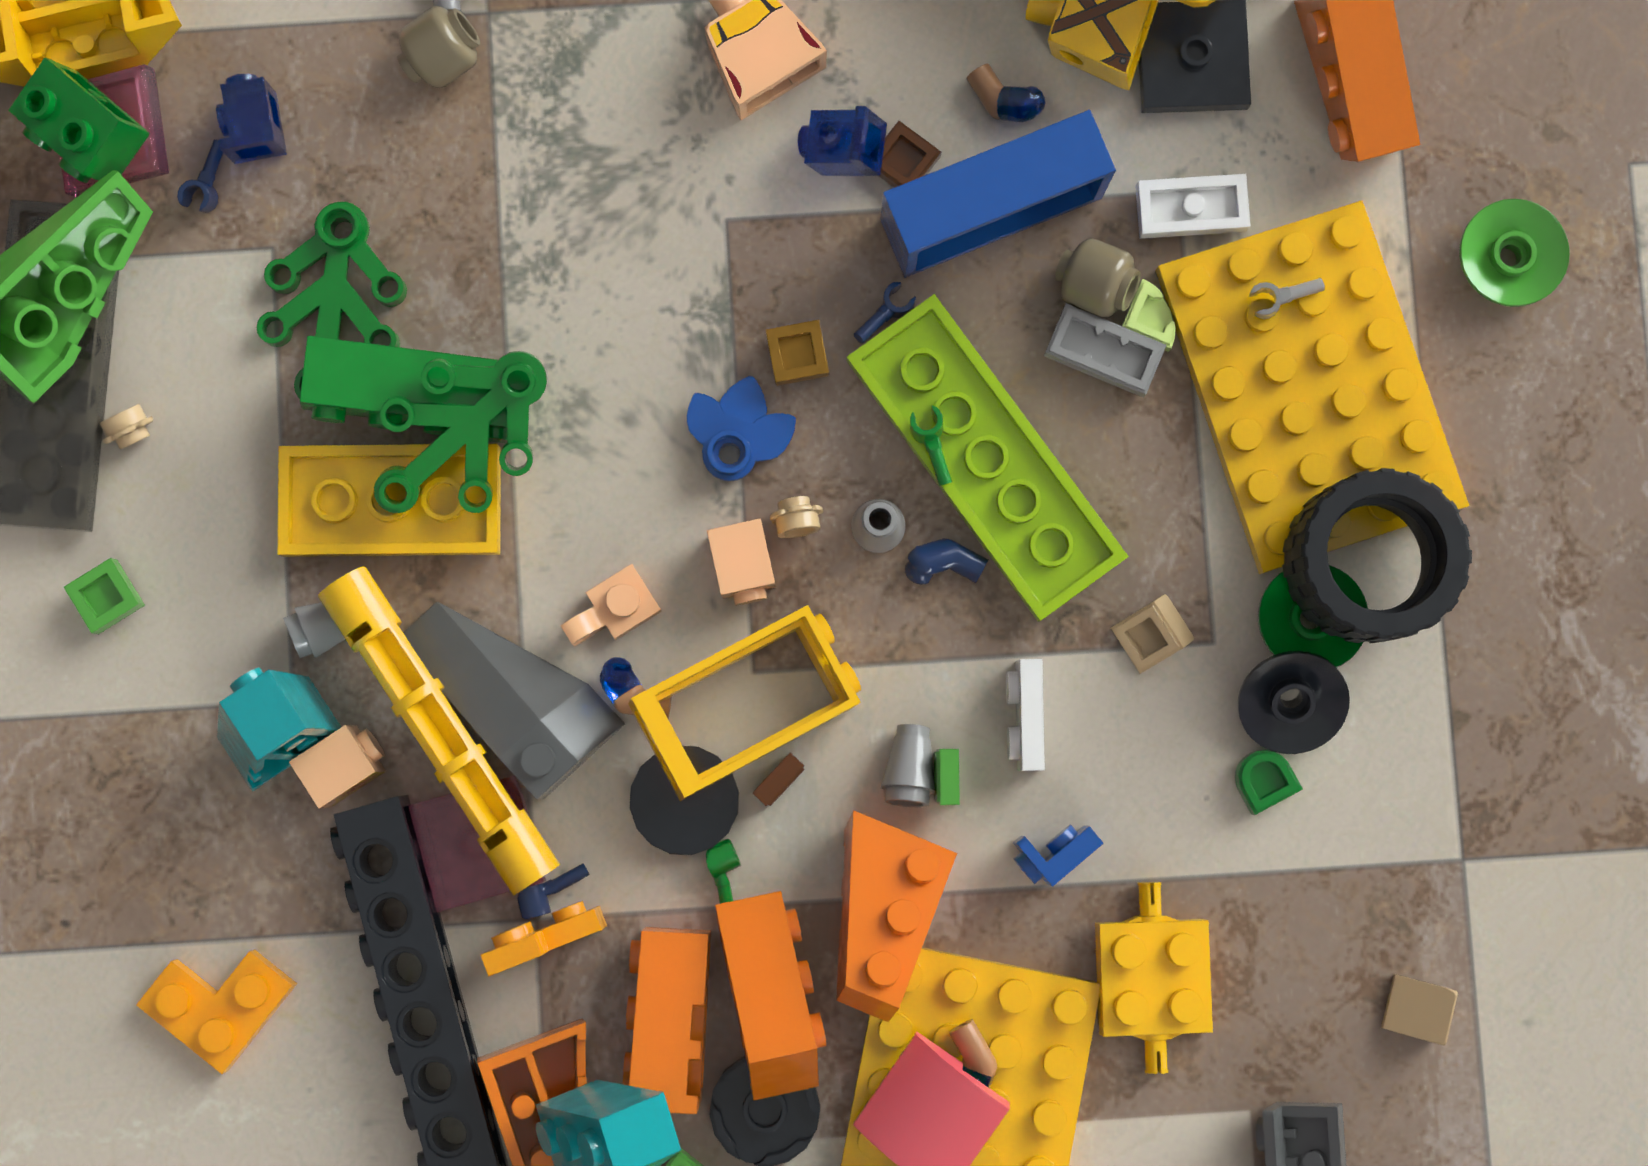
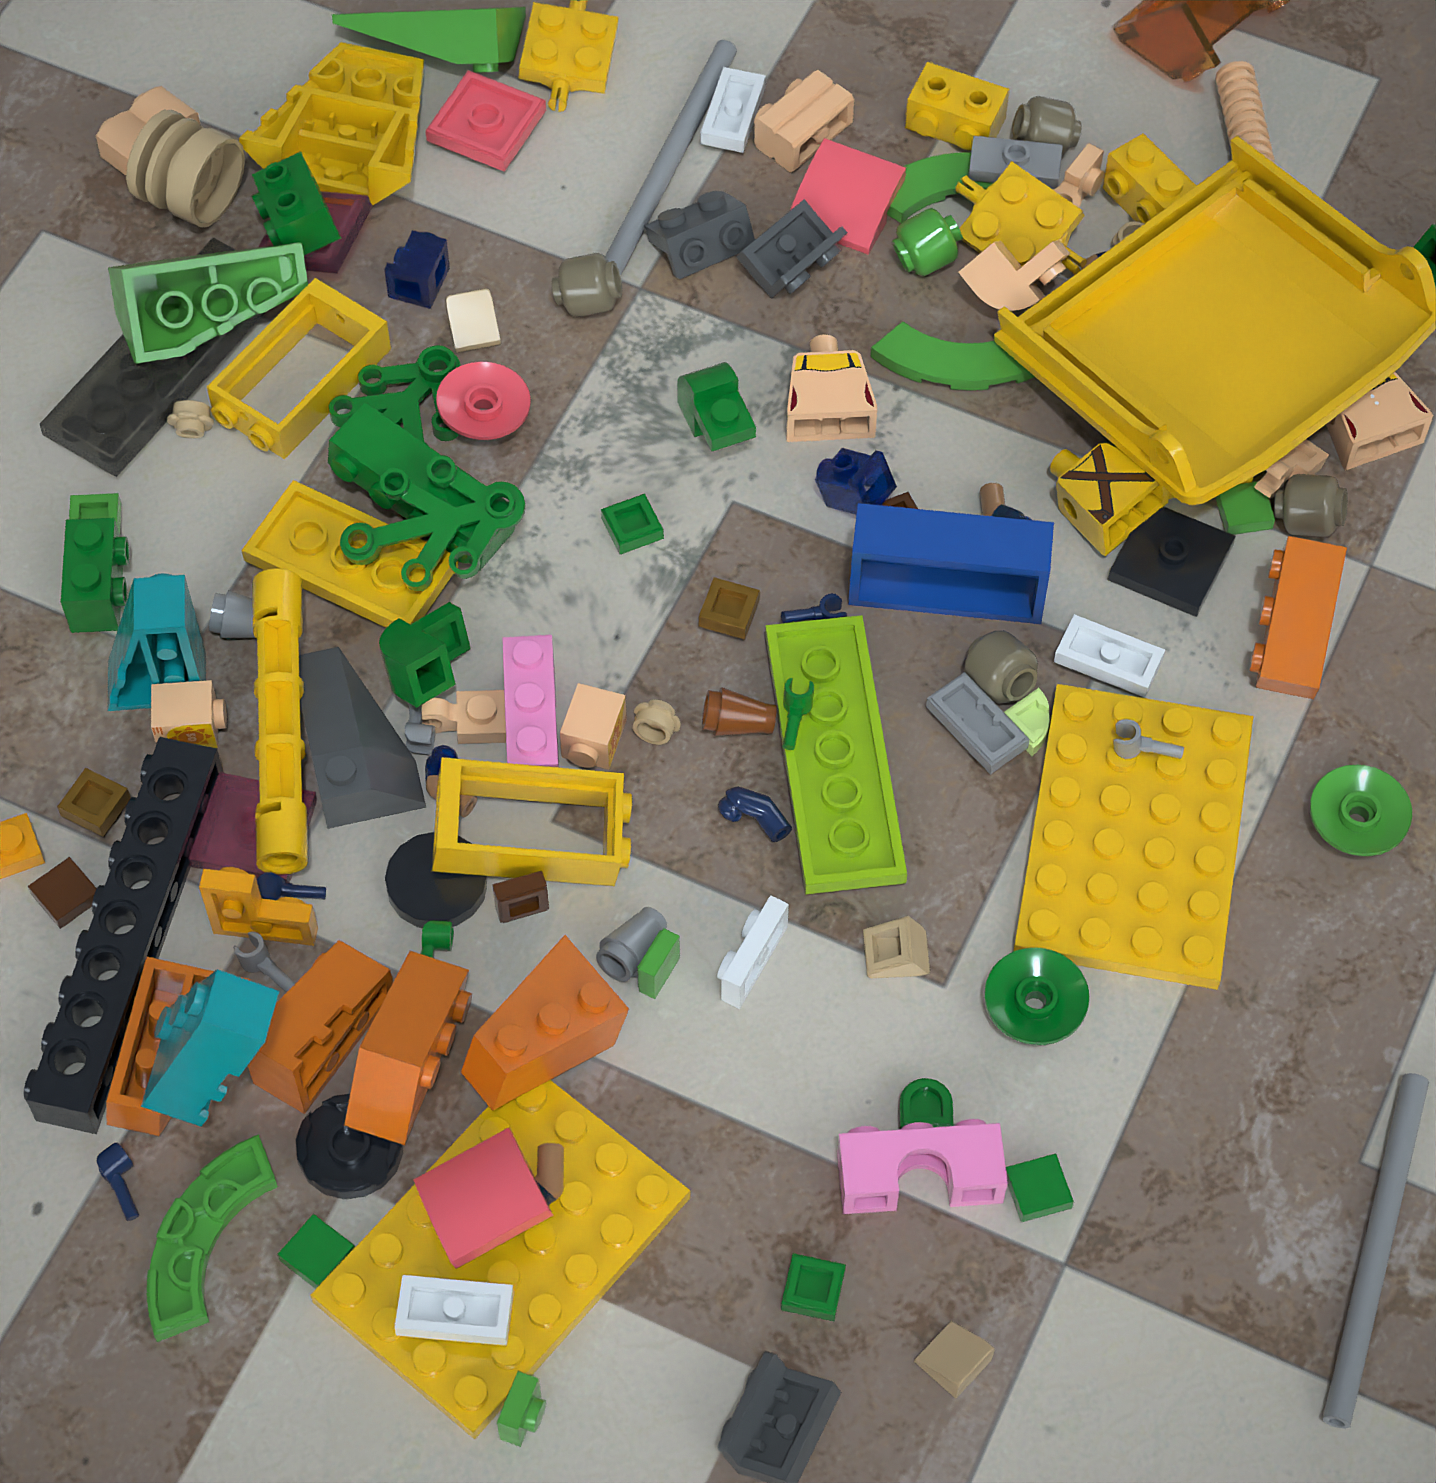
camera: 30 degrees right, 25 degrees down
(146, 663) = (93, 574): none -> green brick
(167, 224) = (313, 305): none -> yellow window
(204, 181) = (362, 293): dark blue hand -> none
(307, 904) = (94, 802): none -> pearl gold plate
(338, 1008) = (63, 892): none -> reddish brown tile
(343, 152) = (472, 320): none -> slope
(410, 222) = (483, 387): none -> coral dish
(524, 578) = (421, 652): none -> green brick
(576, 658) = (419, 736): none -> light grey hand
(578, 975) = (260, 961): none -> light grey hand
(643, 303) = (632, 524): none -> green tile
(658, 131) = (714, 406): none -> green brick
(674, 580) = (530, 700): none -> bright pink arch
(741, 422) = (653, 637): blue plate -> none
(868, 468) = (736, 714): none -> dark orange cone
(873, 539) = (717, 753): light grey cone -> none
(1067, 852) = (715, 1074): blue bracket -> none
(1153, 977) = (737, 1211): yellow plate -> none
(1254, 868) = (963, 1155): none -> bright pink arch
(1258, 1010) = (813, 1287): none -> green tile
(1297, 723) = (955, 1044): black dish -> none
(1407, 803) = (1039, 1188): none -> green tile
(1441, 543) = (1121, 900): black tyre -> none

